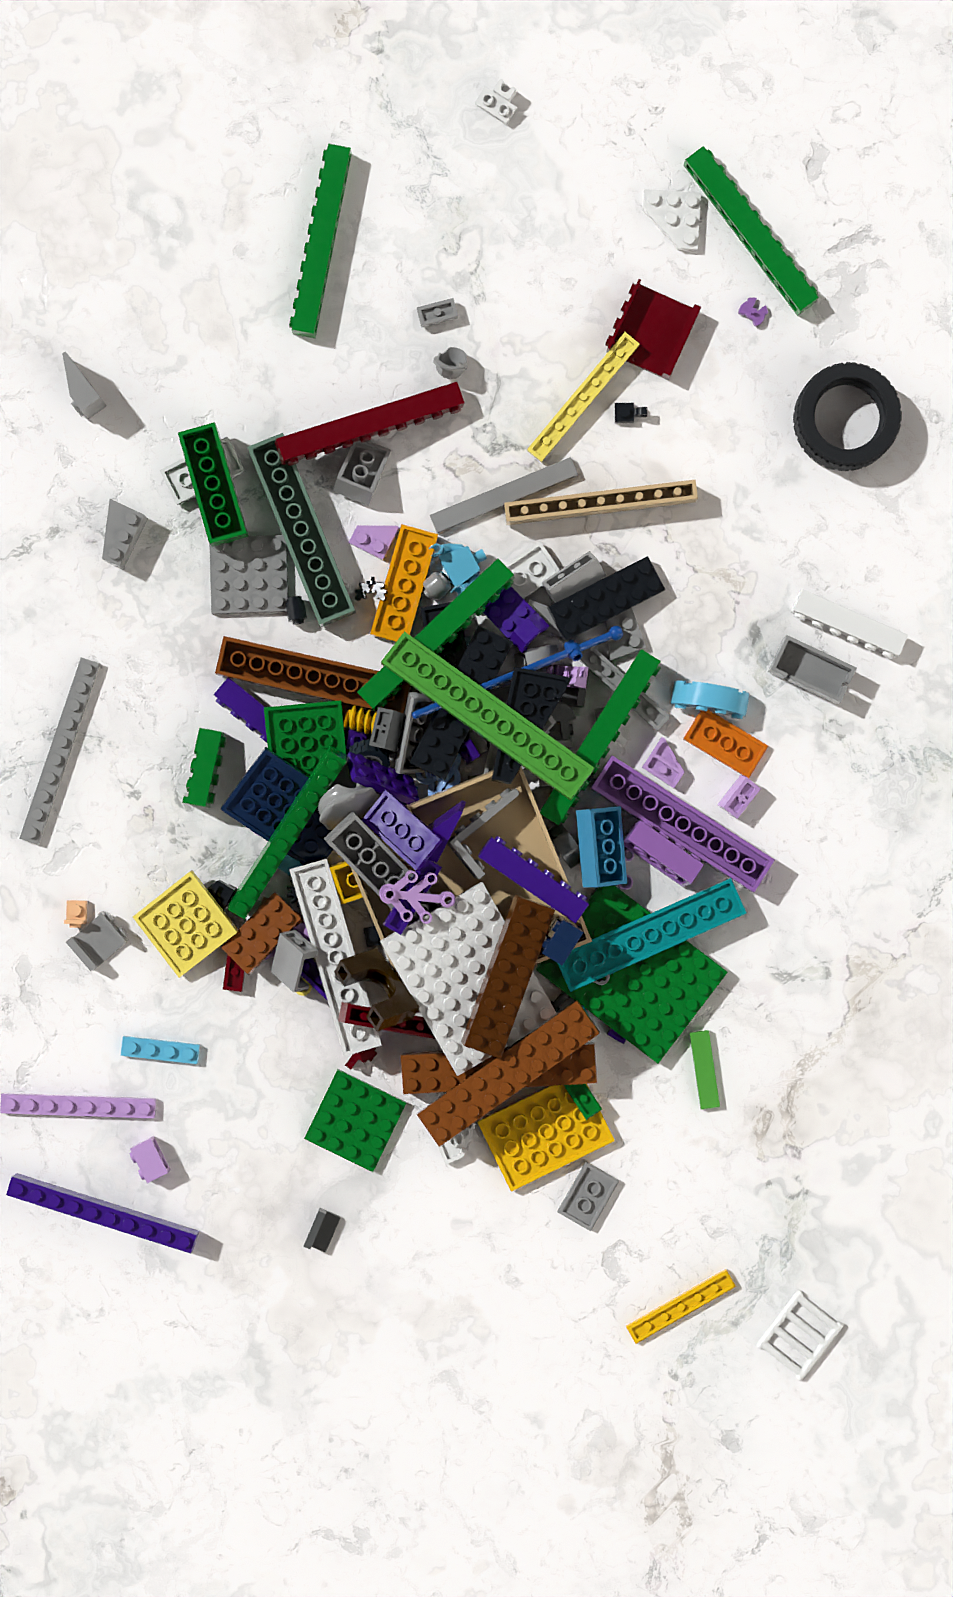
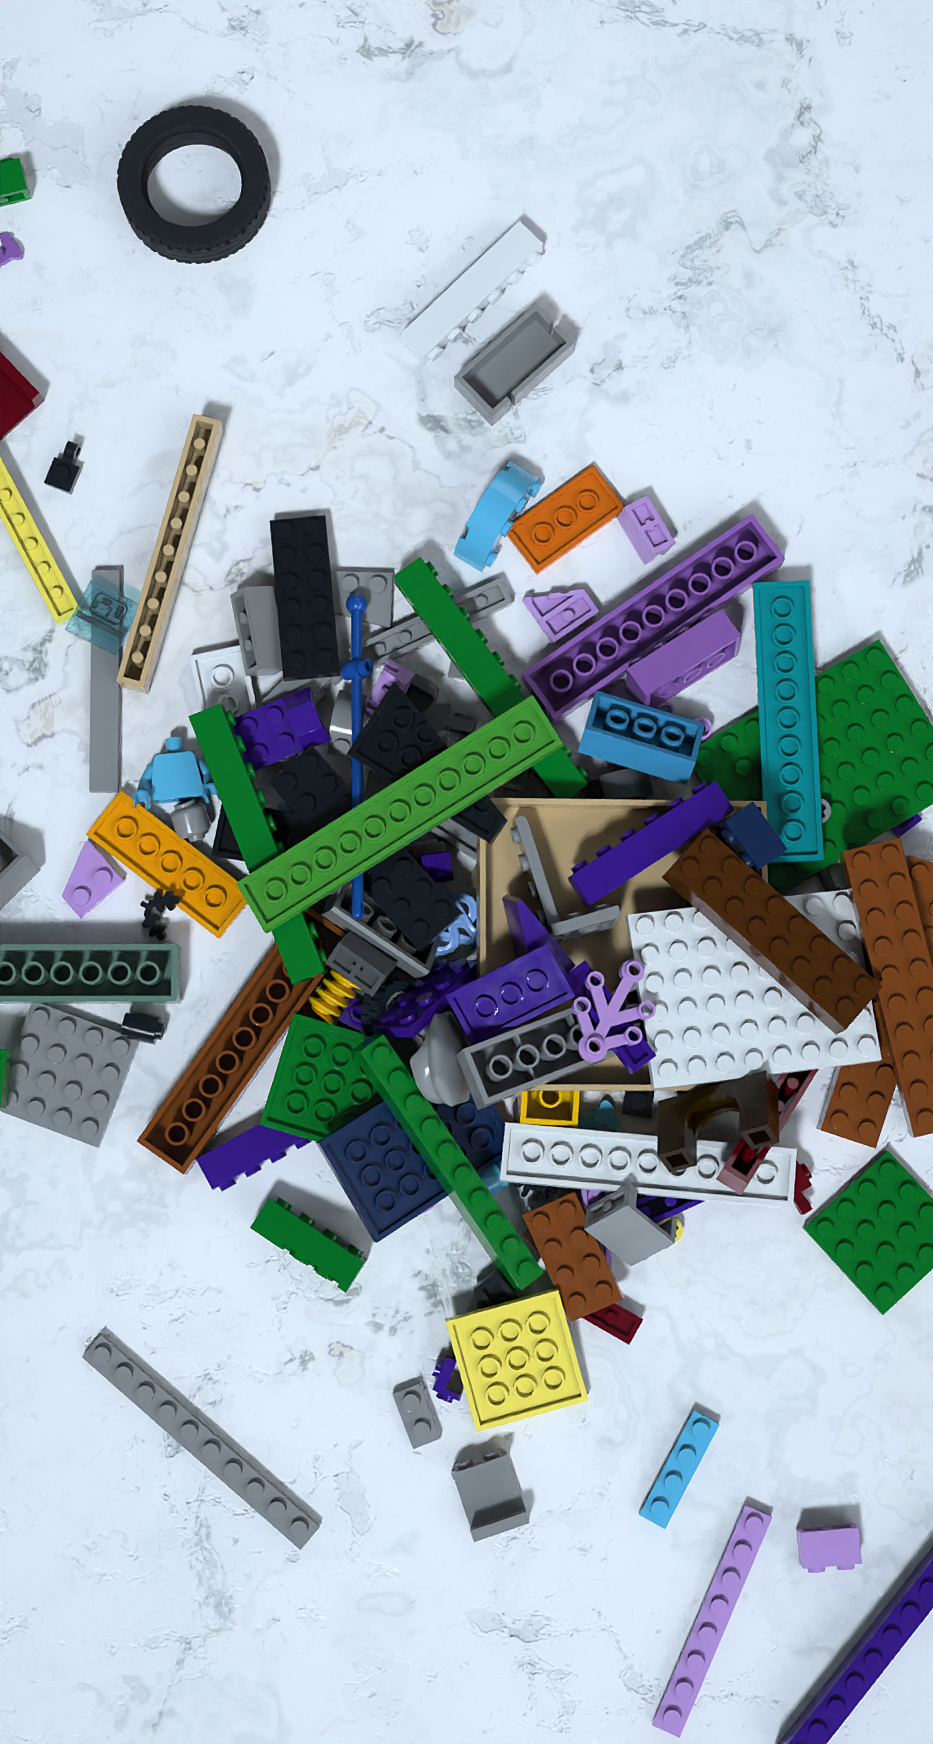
camera: 65 degrees left, 5 degrees down
(76, 913) = (439, 1511): light nougat bracket -> none
(128, 876) = (416, 1415): none -> light grey plate
(160, 882) = (443, 1373): none -> dark purple bracket
(358, 917) = (596, 1117): none -> medium azure piece
(542, 477) = (103, 617): none -> clear light blue tile

